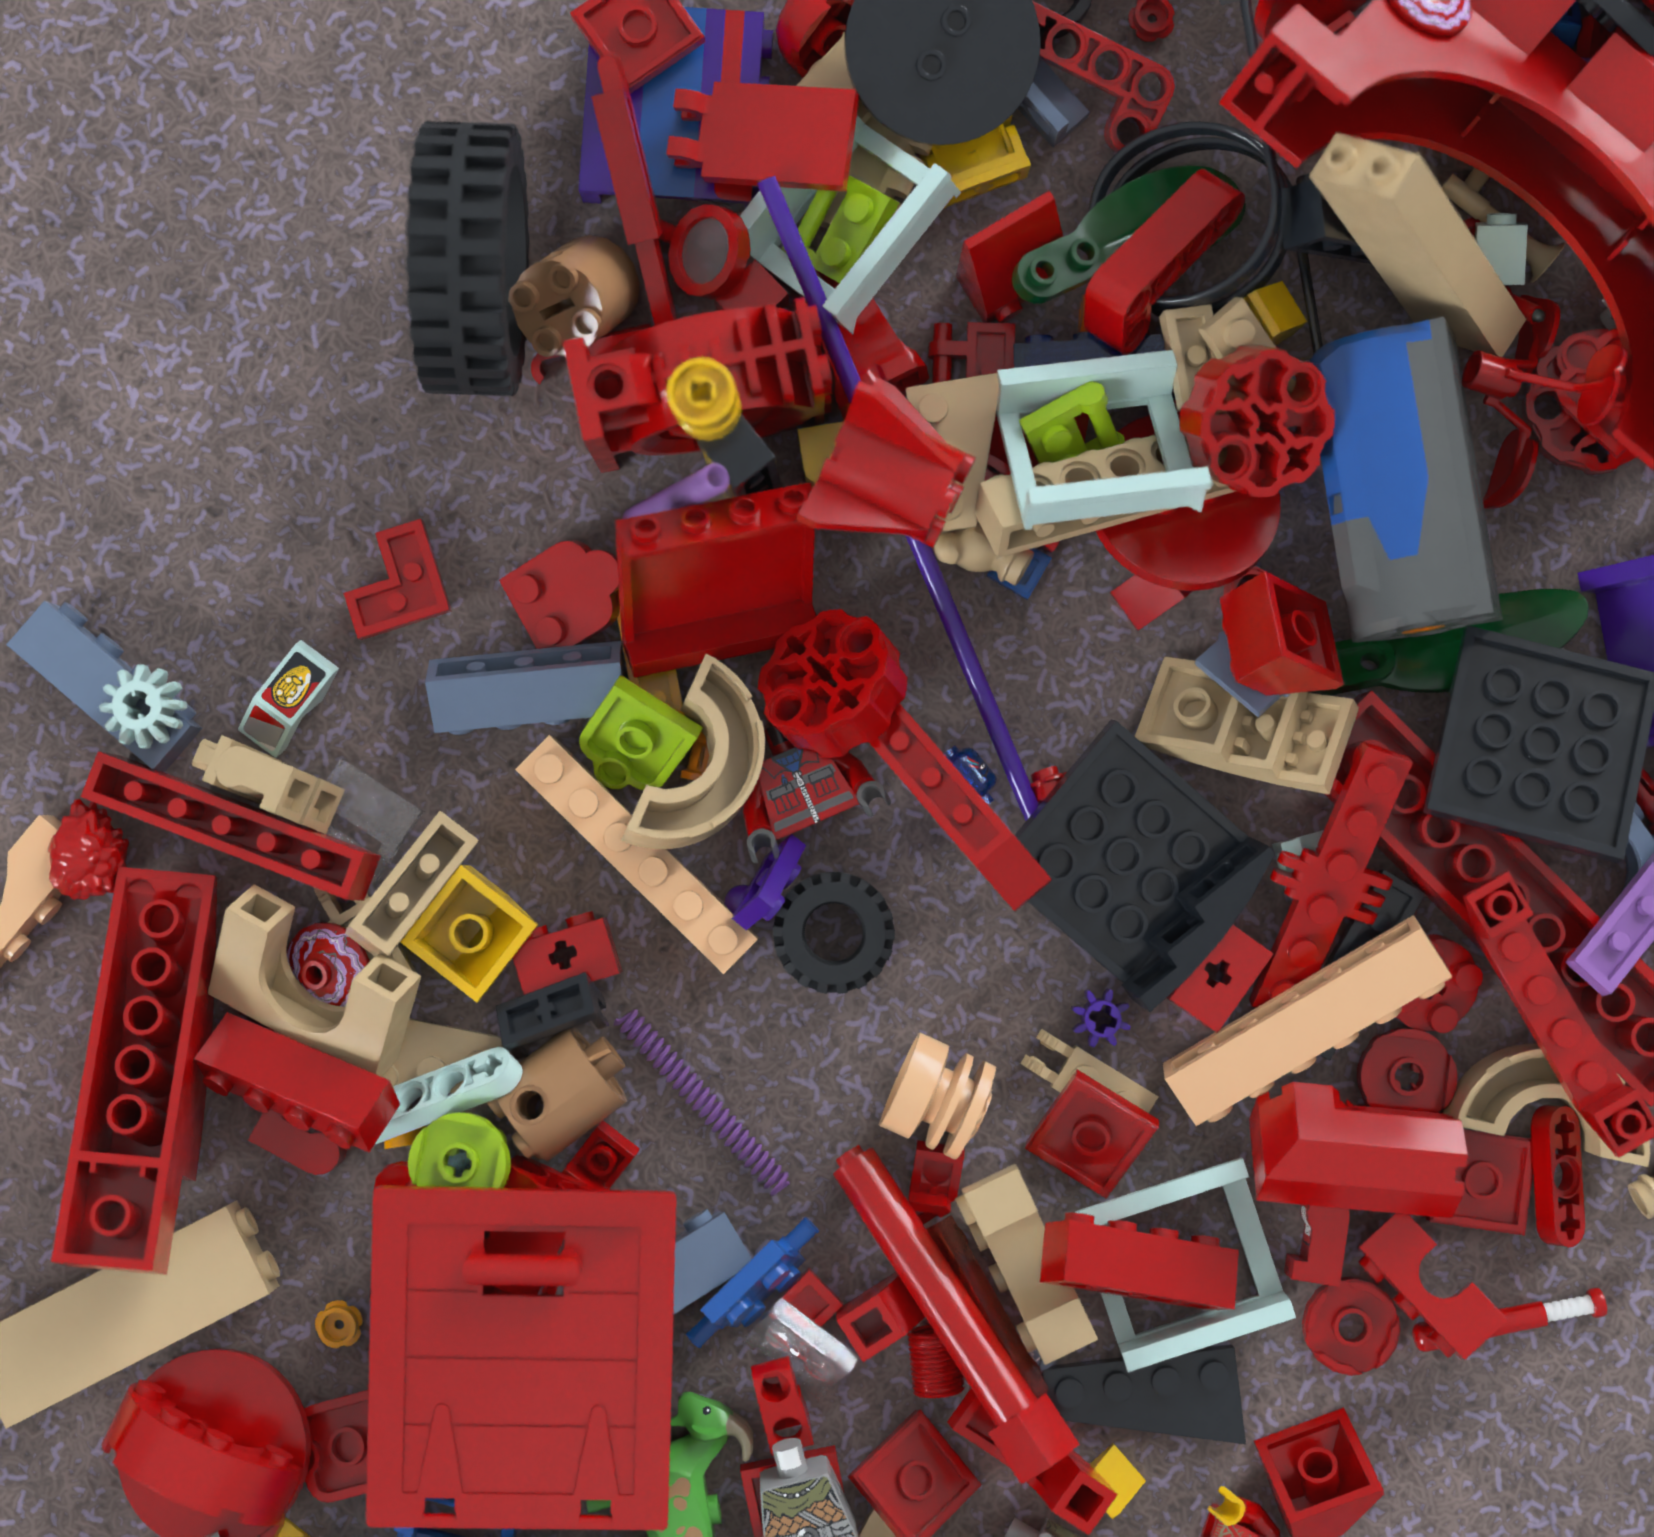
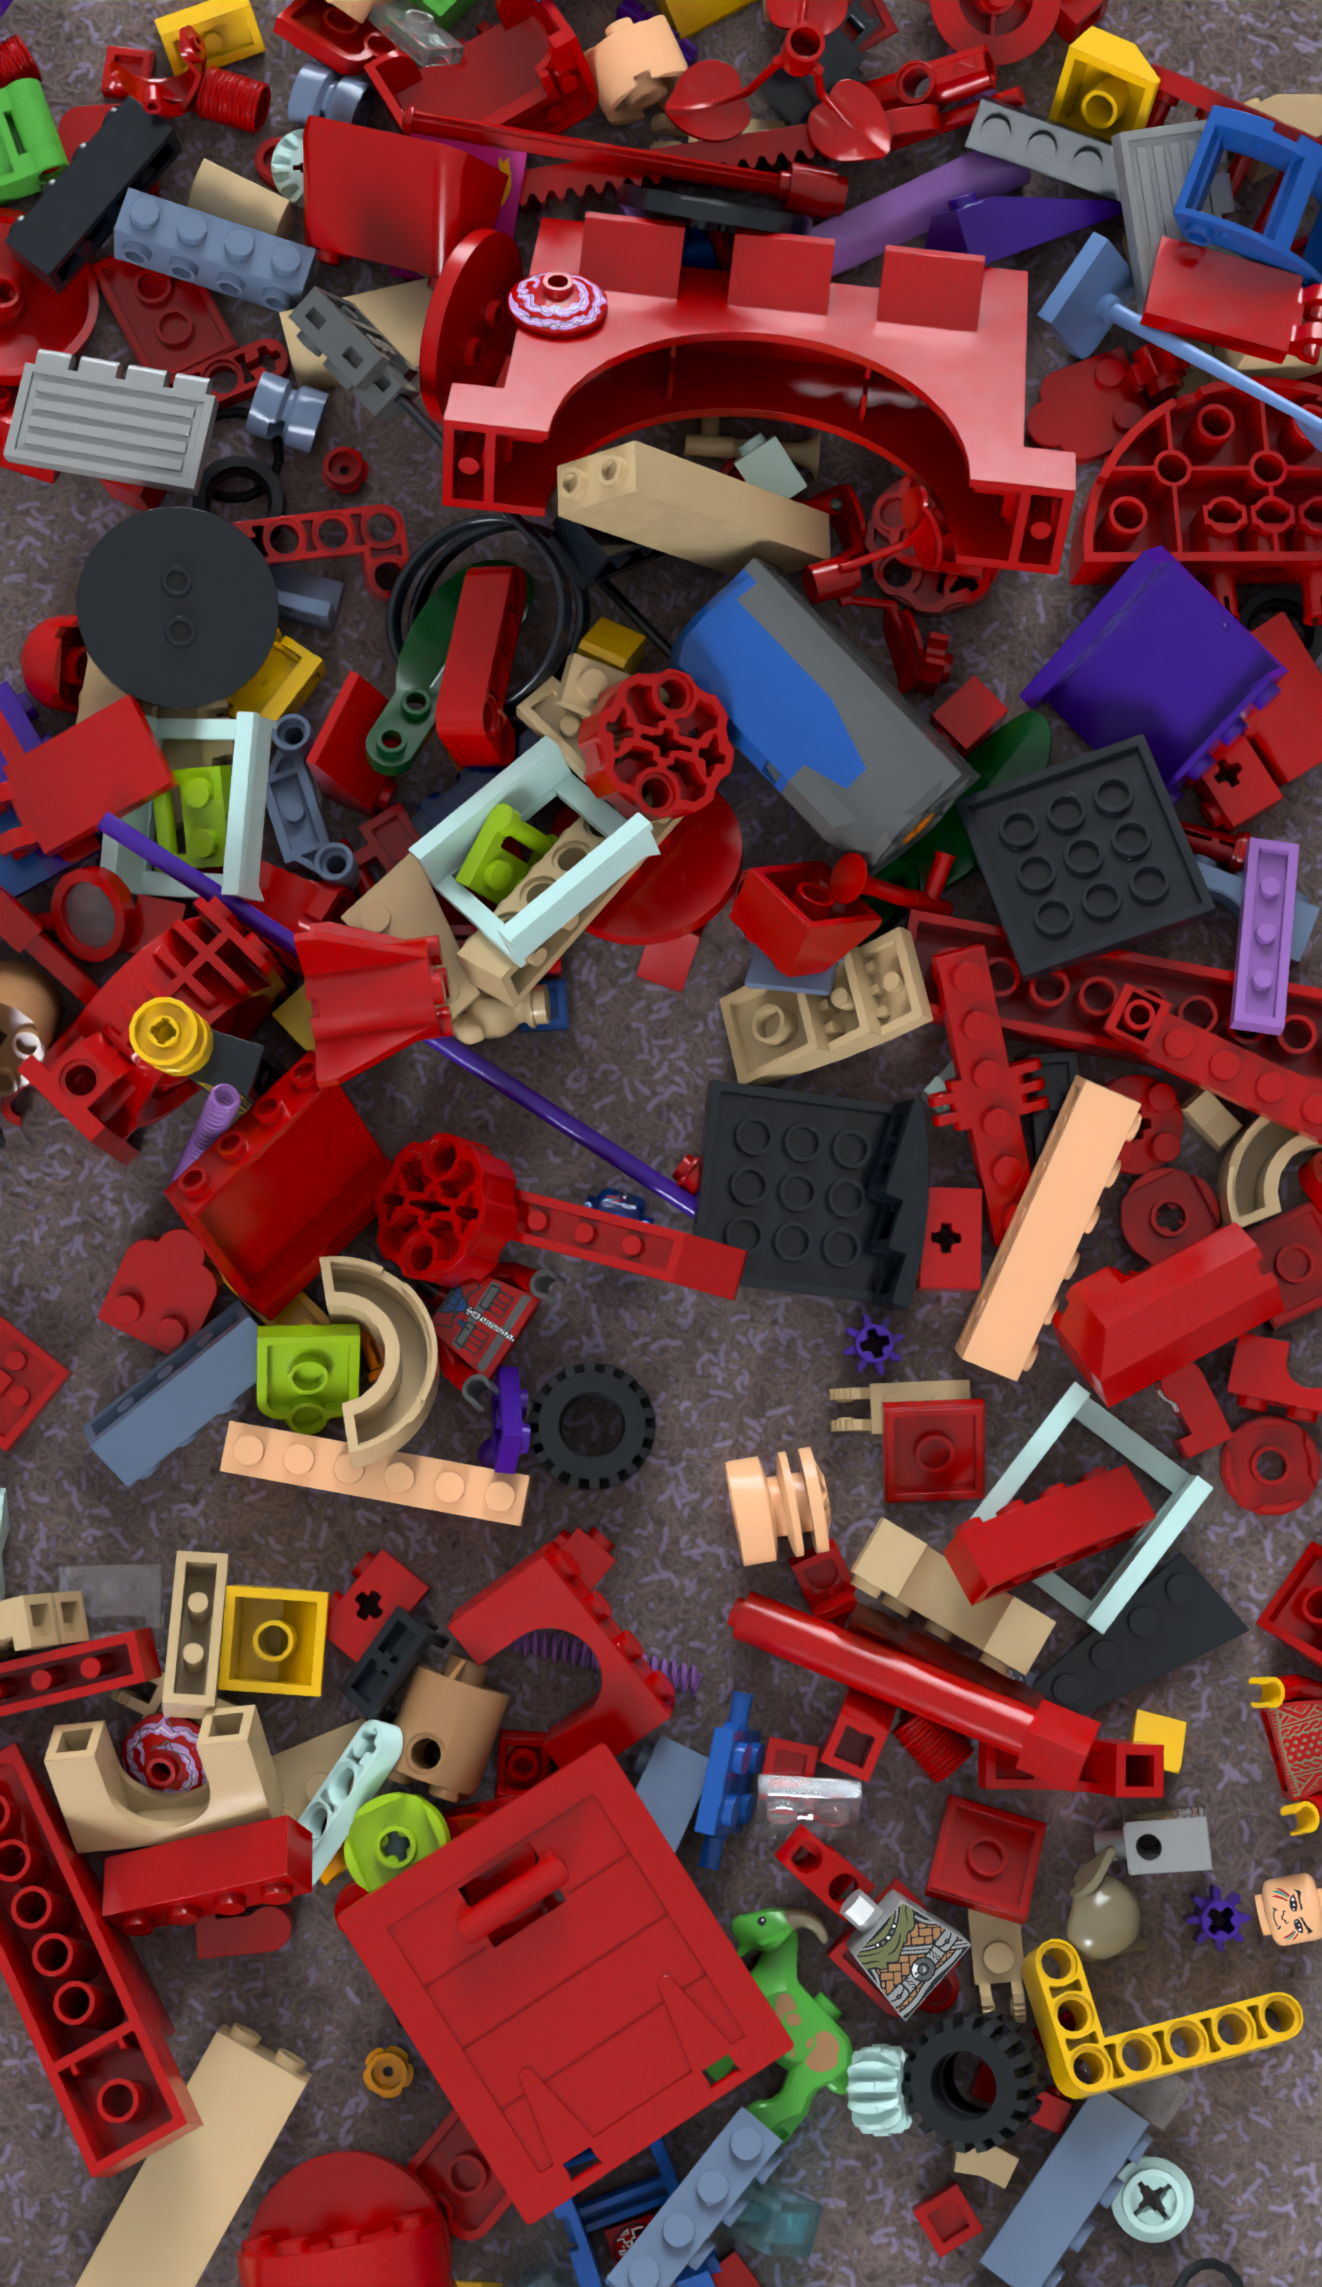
camera: 30 degrees left, 5 degrees down
(711, 1045) = (550, 1594): none -> red arch
(749, 1032) = (589, 1551): none -> red brick
(927, 277) = (297, 811): none -> sand blue plate
(1341, 636) = (851, 879): none -> red piece
(1495, 1019) = (1210, 1119): none -> tan piece
(1526, 562) = (969, 716): none -> red brick
(1529, 502) = (936, 663): none -> red plate

